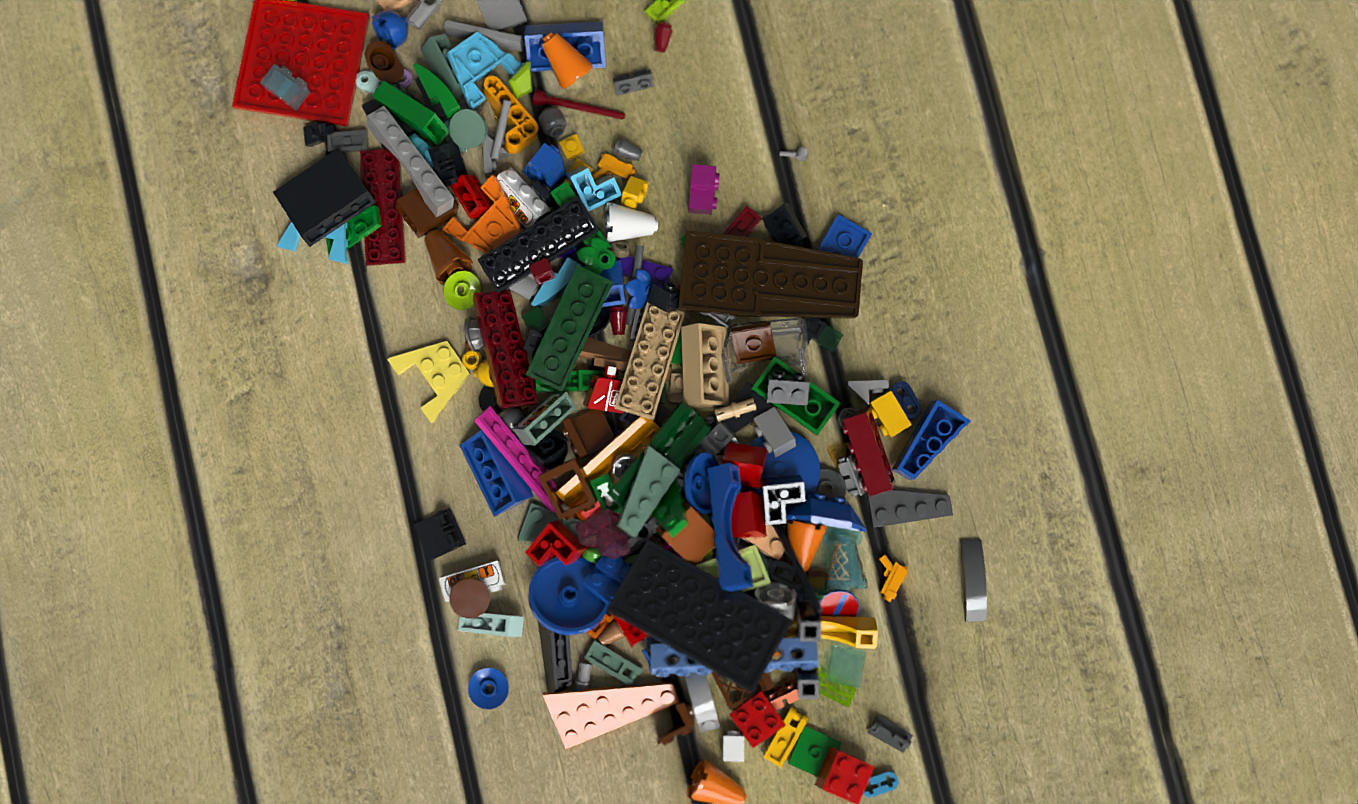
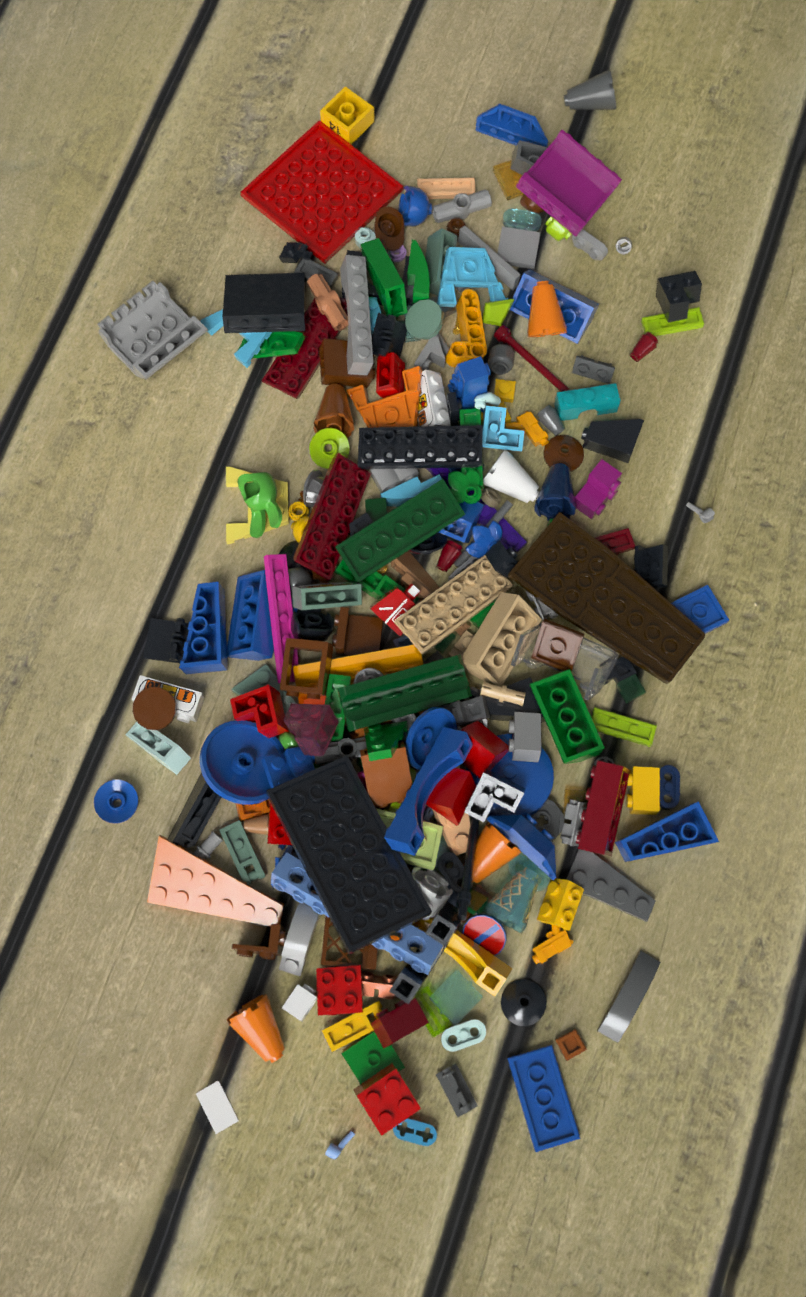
camera: 30 degrees right, 10 degrees down
(243, 282) = (149, 330): none -> light grey slope
(285, 87) = (294, 200): clear light blue brick -> none
(376, 162) = (328, 302): none -> nougat piece
(434, 369) = (260, 496): none -> bright green piece
(437, 19) = (455, 223): none -> reddish brown plate
(470, 512) = (206, 638): none -> blue wedge
(500, 129) = (451, 336): light grey bar -> none
(542, 271) = (408, 471): dark red slope -> none
(567, 168) = (489, 397): none -> light aqua arm
(634, 192) = (534, 457): yellow brick -> none
(650, 485) = (380, 706): sand green wing -> none
(654, 108) = (602, 398): none -> teal arch
(659, 180) = (554, 455): none -> reddish brown dish
(671, 212) = (556, 493): none -> dark blue cone
(687, 134) = (613, 437): none -> black slope
(788, 388) = (563, 703): bracket -> none
(817, 715) = (398, 1023): none -> dark red brick
(842, 373) = (623, 727): none -> lime tile
(861, 389) = (632, 749): light grey slope -> none
(871, 692) = (463, 1035): none -> light aqua plate
(880, 545) = (560, 903): none -> yellow bracket
(887, 636) = (515, 1011): none -> black dish
(952, 645) = (570, 1045): none -> dark orange tile
(956, 697) = (543, 1098): none -> blue tile

